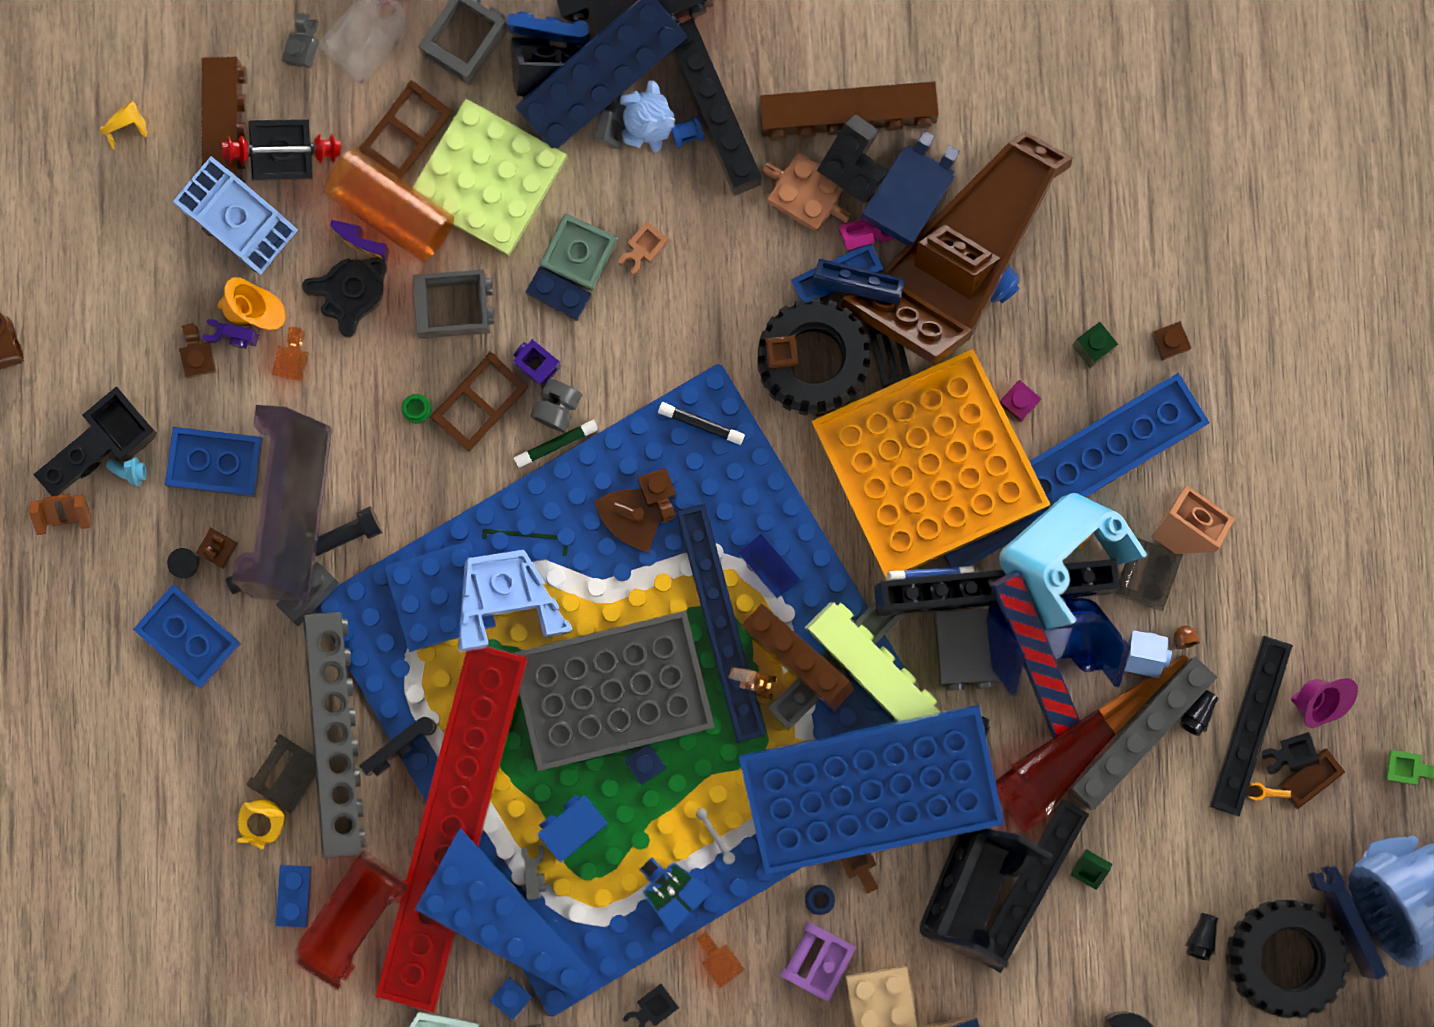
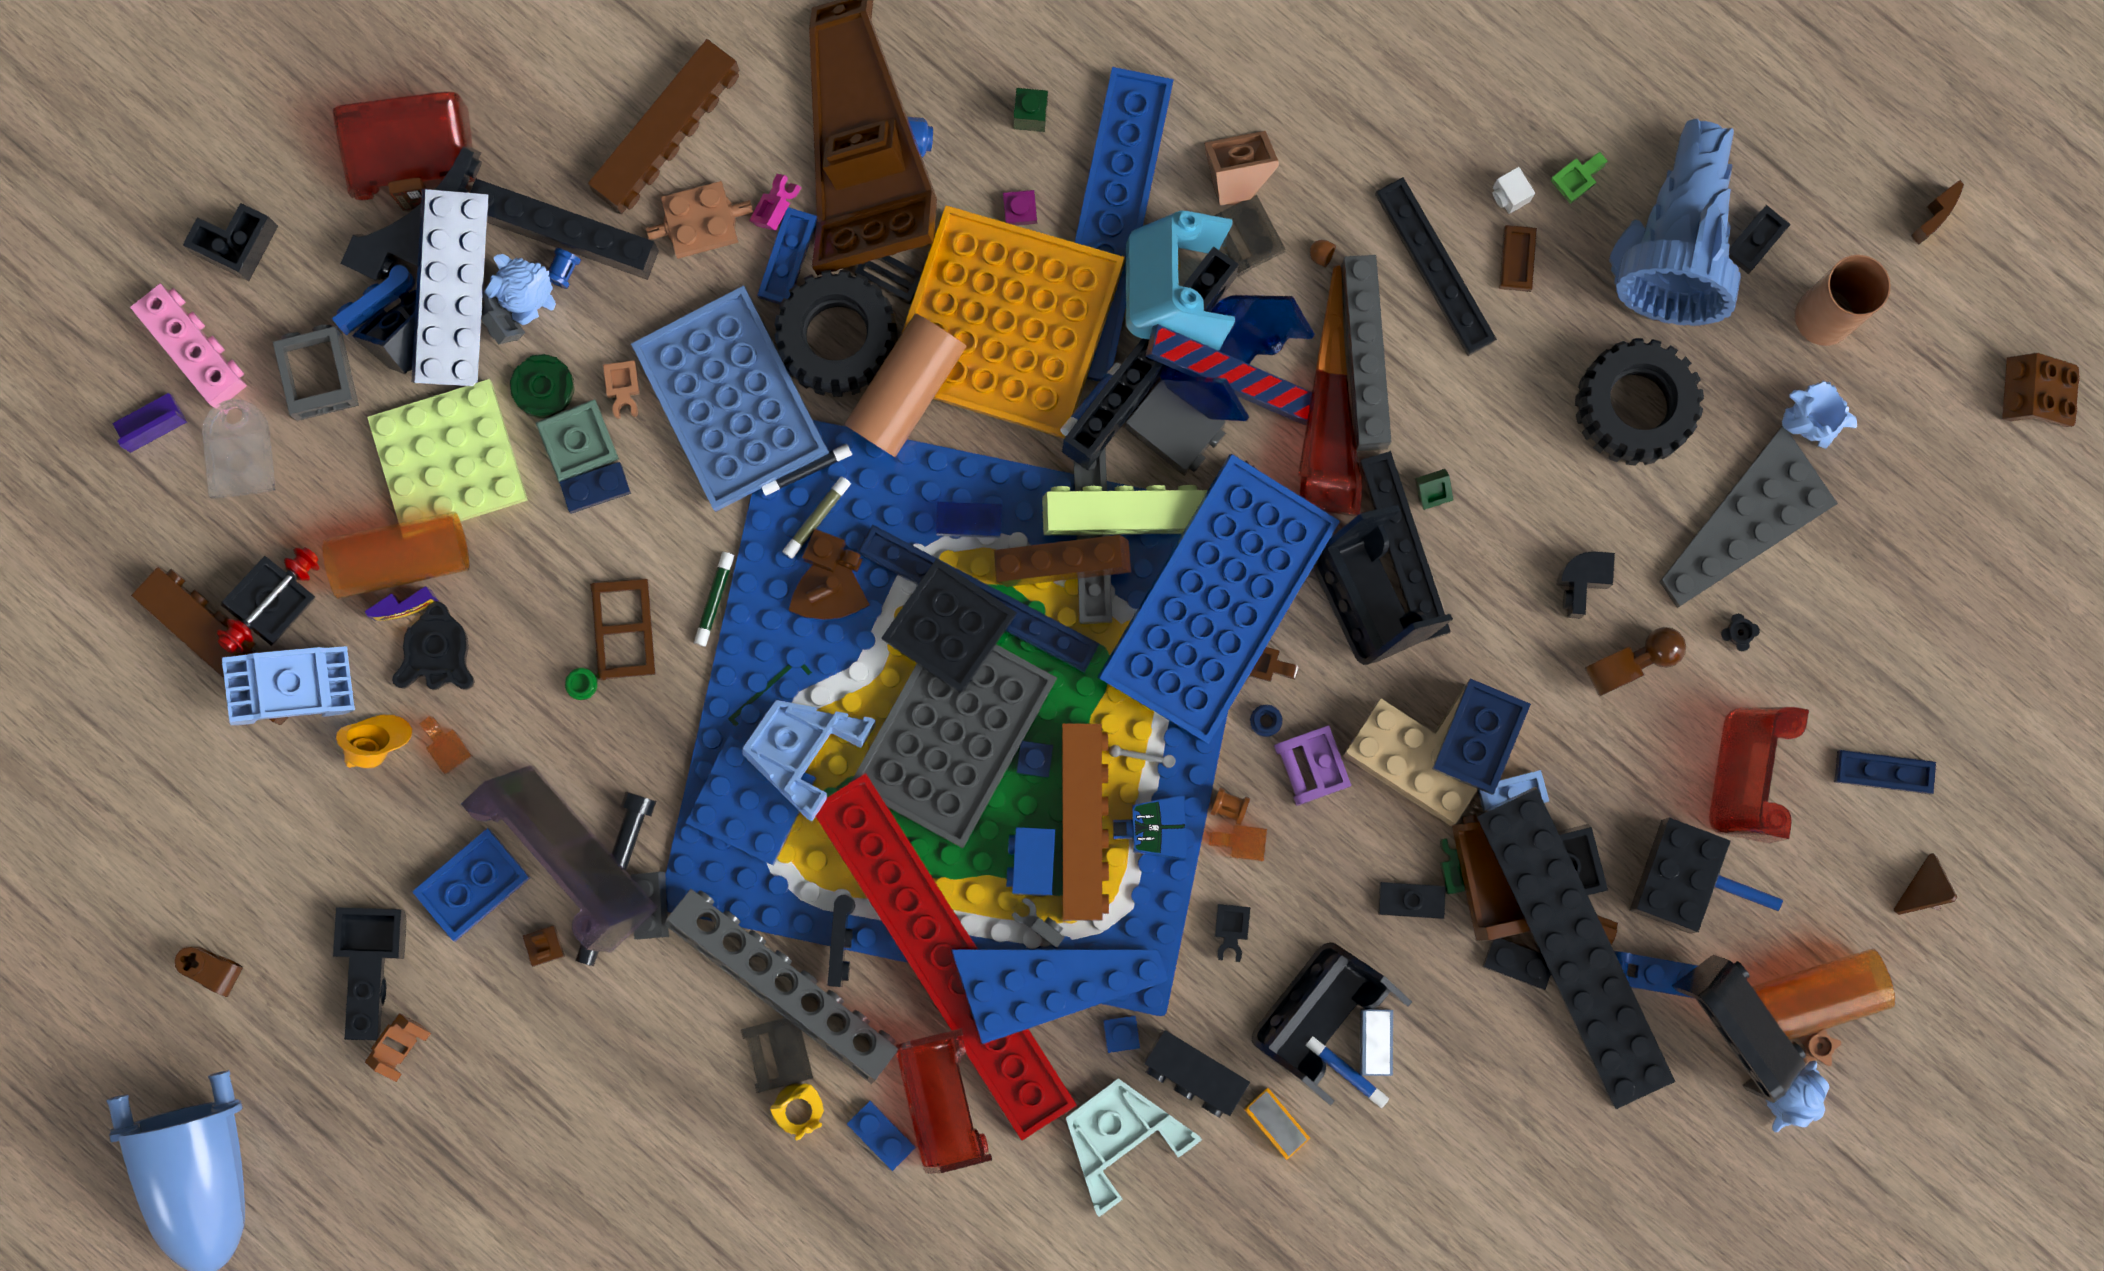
camera: 50 degrees left, 0 degrees up
(125, 116) = (118, 705): yellow piece -> none
(132, 470) = (417, 956): medium azure plate -> none
(183, 563) = (530, 984): black tile -> none
(187, 636) = (593, 1033): blue plate -> none
(198, 356) = (371, 822): reddish brown plate -> none
(238, 336) = (385, 773): dark purple plate -> none
(301, 46) = (198, 508): dark grey plate -> none
(412, 87) = (324, 491): reddish brown window -> none
(422, 306) = (505, 558): dark grey window -> none
(531, 351) = (623, 547): dark purple brick -> none
(550, 414) = (688, 580): dark grey wheel -> none
(595, 194) = (542, 386): none -> dark green tile
(630, 837) = (1082, 822): none -> dark orange brick
(675, 461) = (816, 517): none -> olive bar
(681, 621) = (949, 626): none -> black plate
(702, 327) = (729, 398): none -> medium blue plate
(736, 929) = (1230, 806): none -> dark orange bush
(753, 681) = (1048, 613): clear orange plate -> none
(781, 352) = (810, 352): reddish brown tile -> none
(819, 437) = (905, 384): none -> nougat piece
(848, 163) = (707, 165): black brick -> none
(858, 281) = (810, 243): dark blue tile -> none
(911, 191) = (776, 138): dark blue tile -> none
(1148, 654) = (1310, 291): light blue brick -> none
(1171, 340) = (1082, 50): reddish brown plate -> none
(1198, 716) = (1392, 298): black cone -> none
(1203, 938) = (1565, 453): black cone -> none
(1268, 792) = (1498, 300): light orange hand -> none
(1295, 751) = (1487, 251): black plate -> none
(1325, 701) = (1468, 192): magenta piece -> none
(1349, 921) = (1646, 325): dark blue tile -> none
(1355, 731) = (1512, 191): none -> white plate

